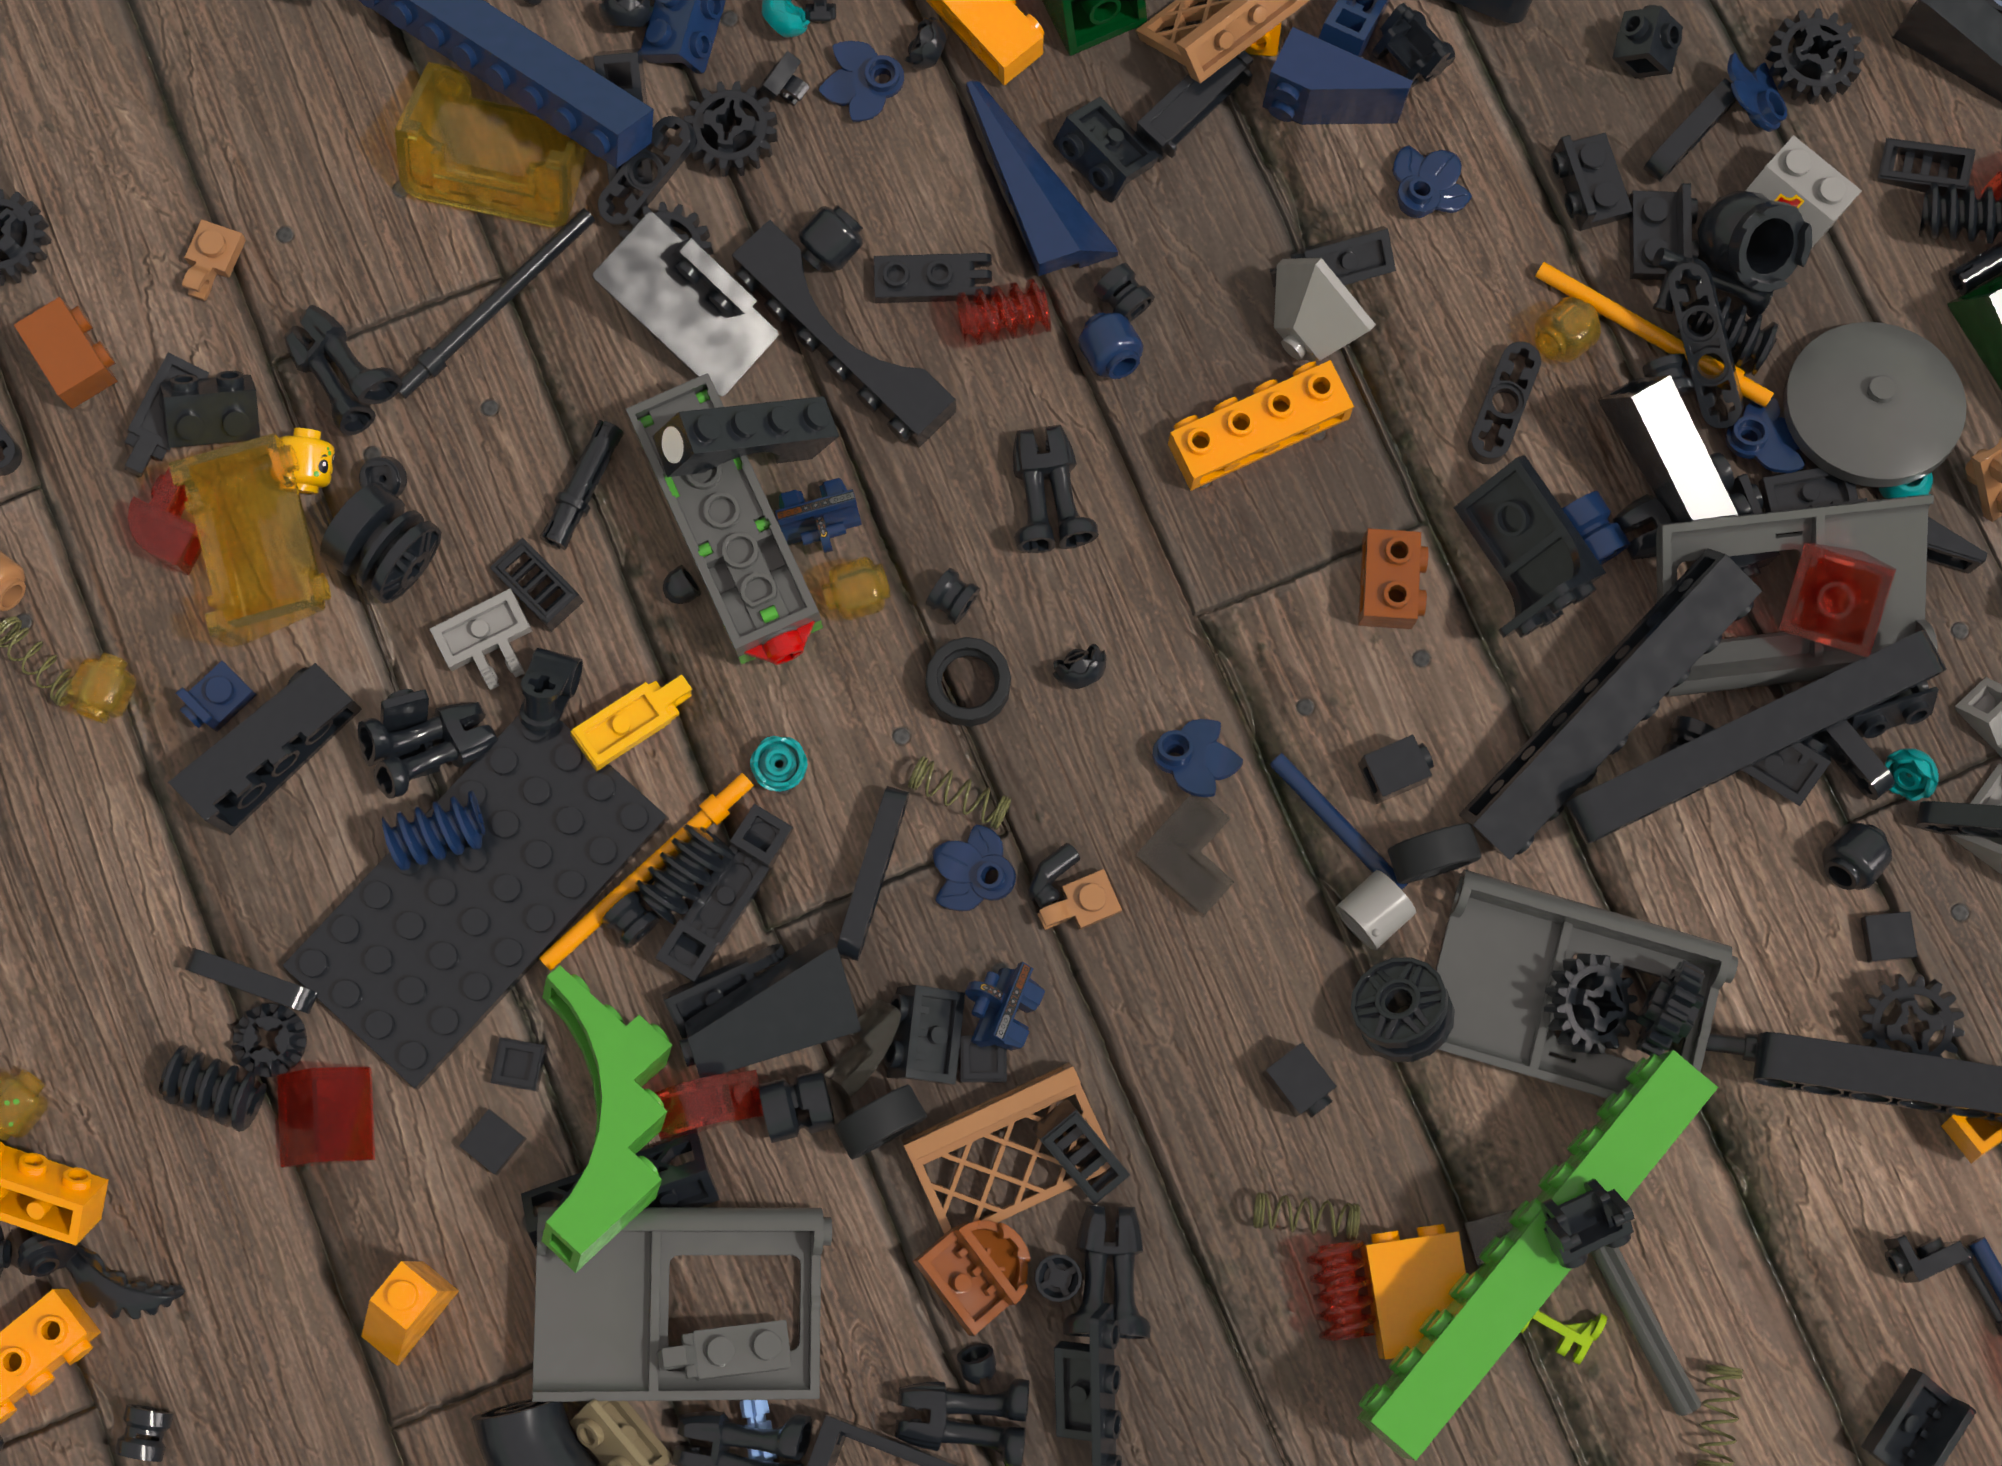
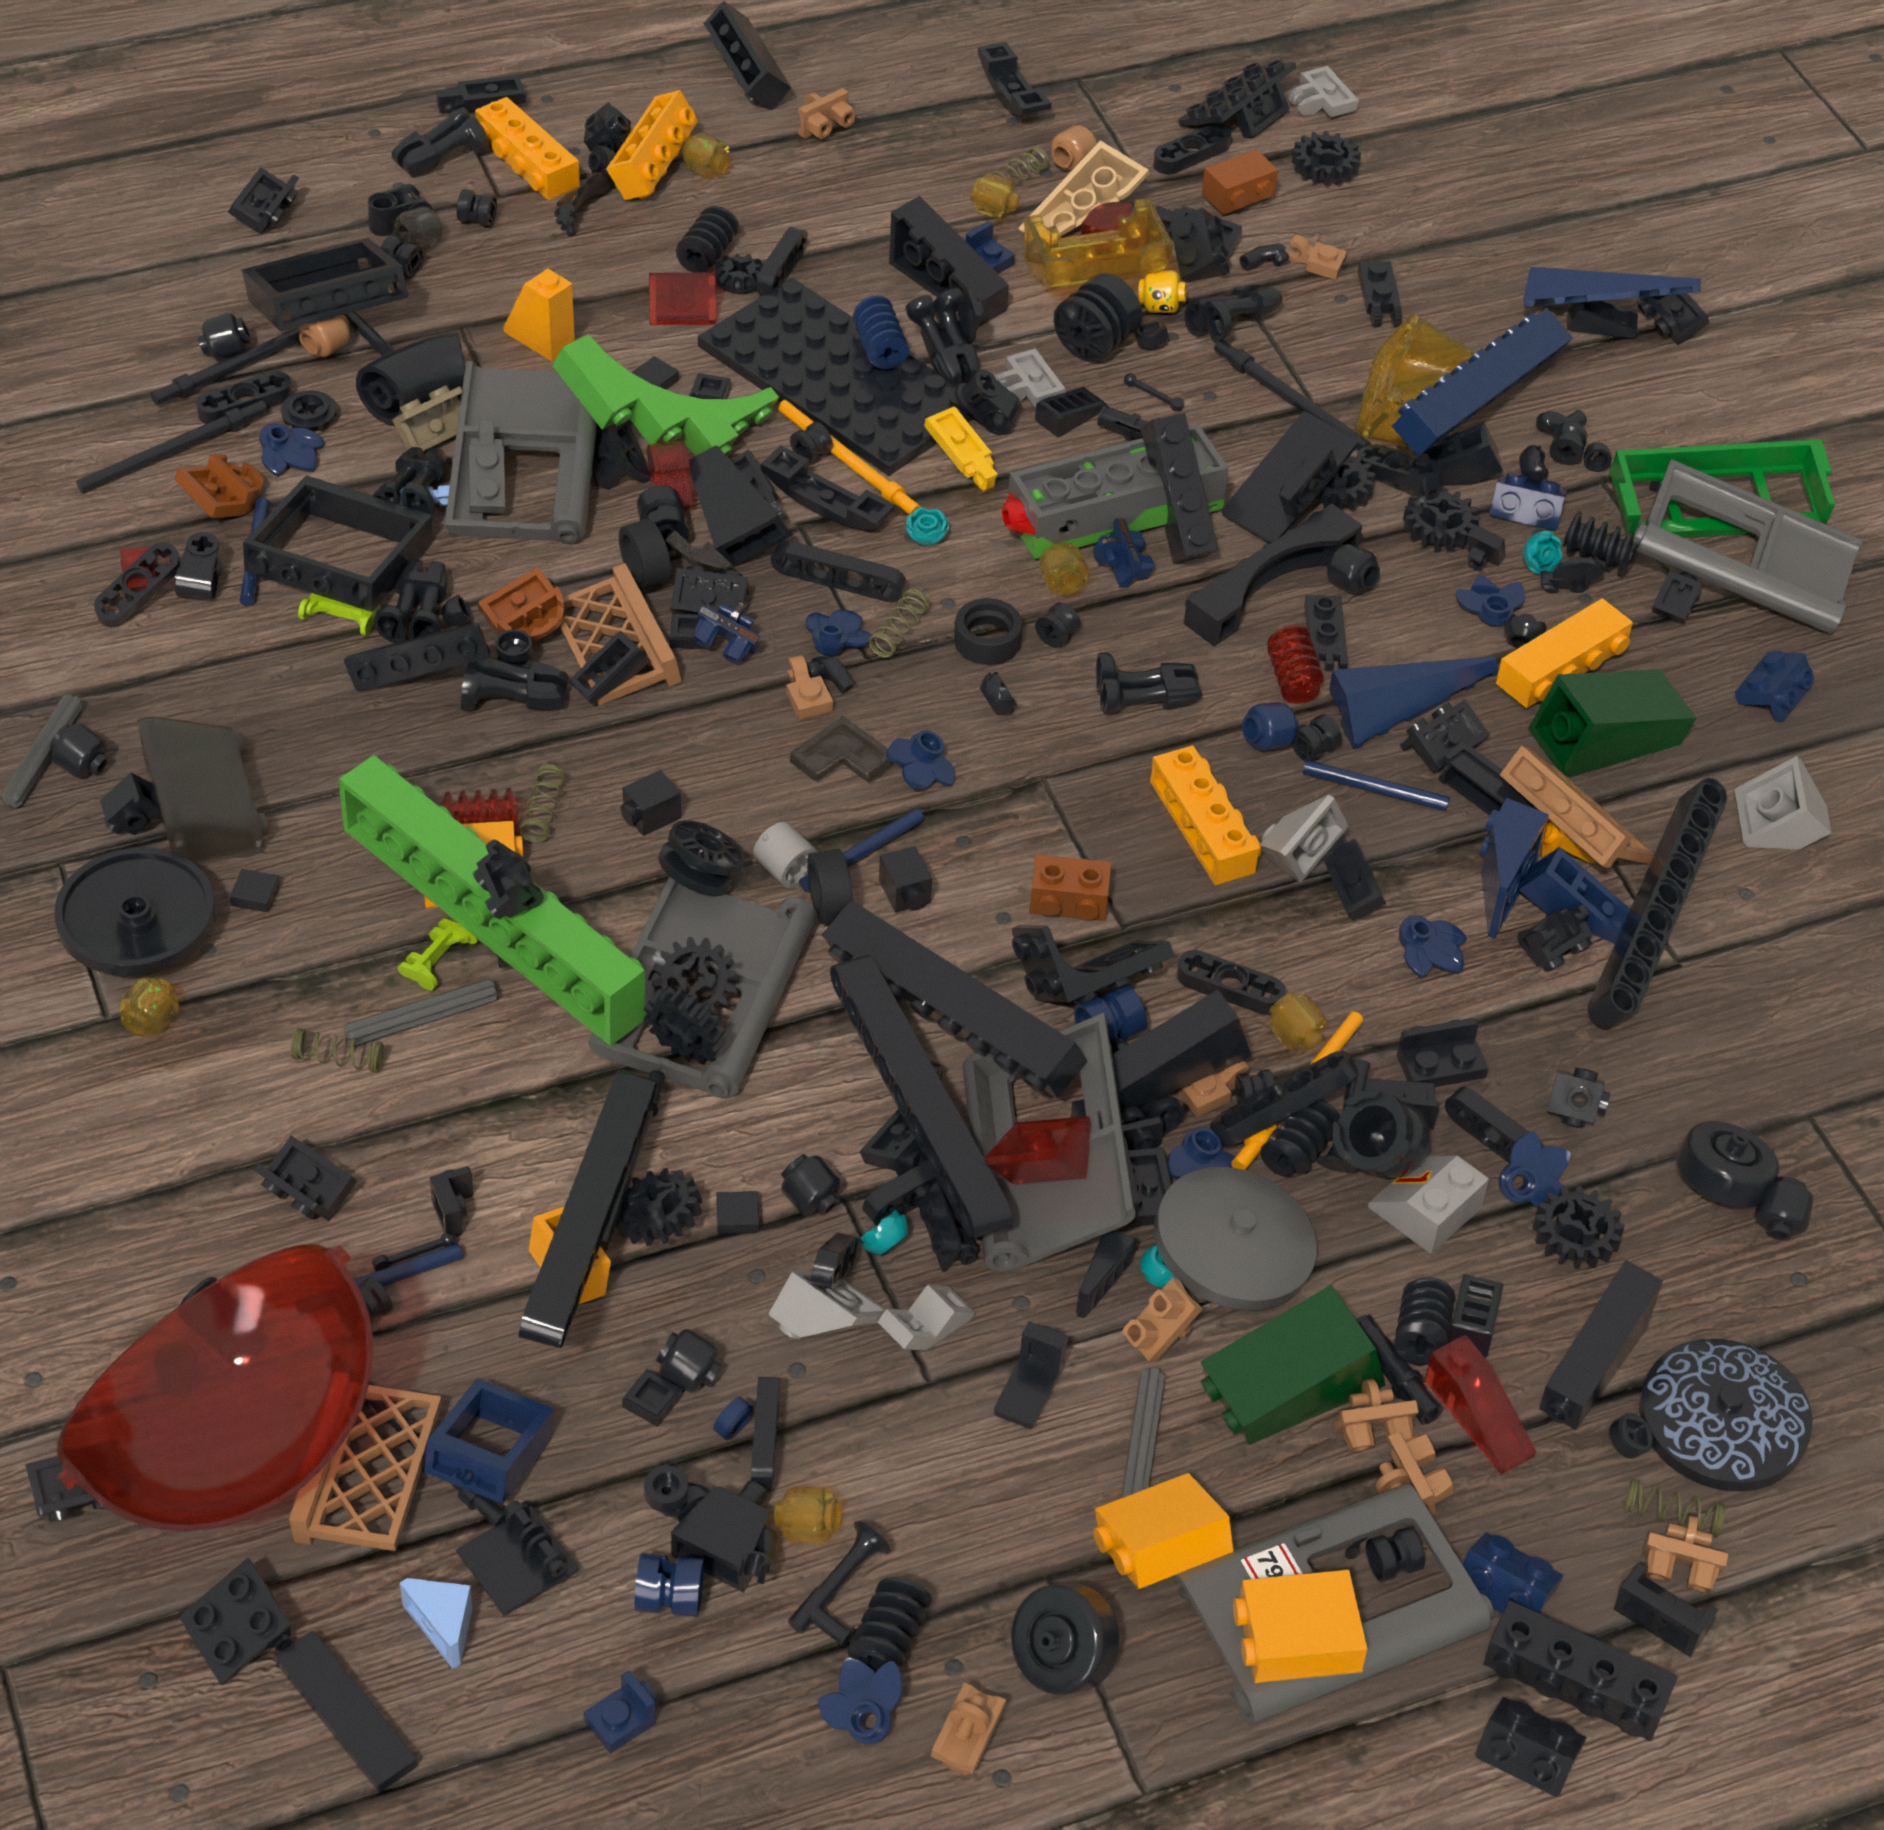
camera: 90 degrees right, 30 degrees down
(94, 550) = (1098, 179): none -> tan wedge
(204, 322) = (1263, 253): none -> black arm
(280, 182) = (1380, 292): none -> black hinge
(512, 451) = (1176, 404): none -> black hinge
(683, 871) = (844, 464): black piece -> none
(1182, 231) = (1376, 785): none -> dark blue bar

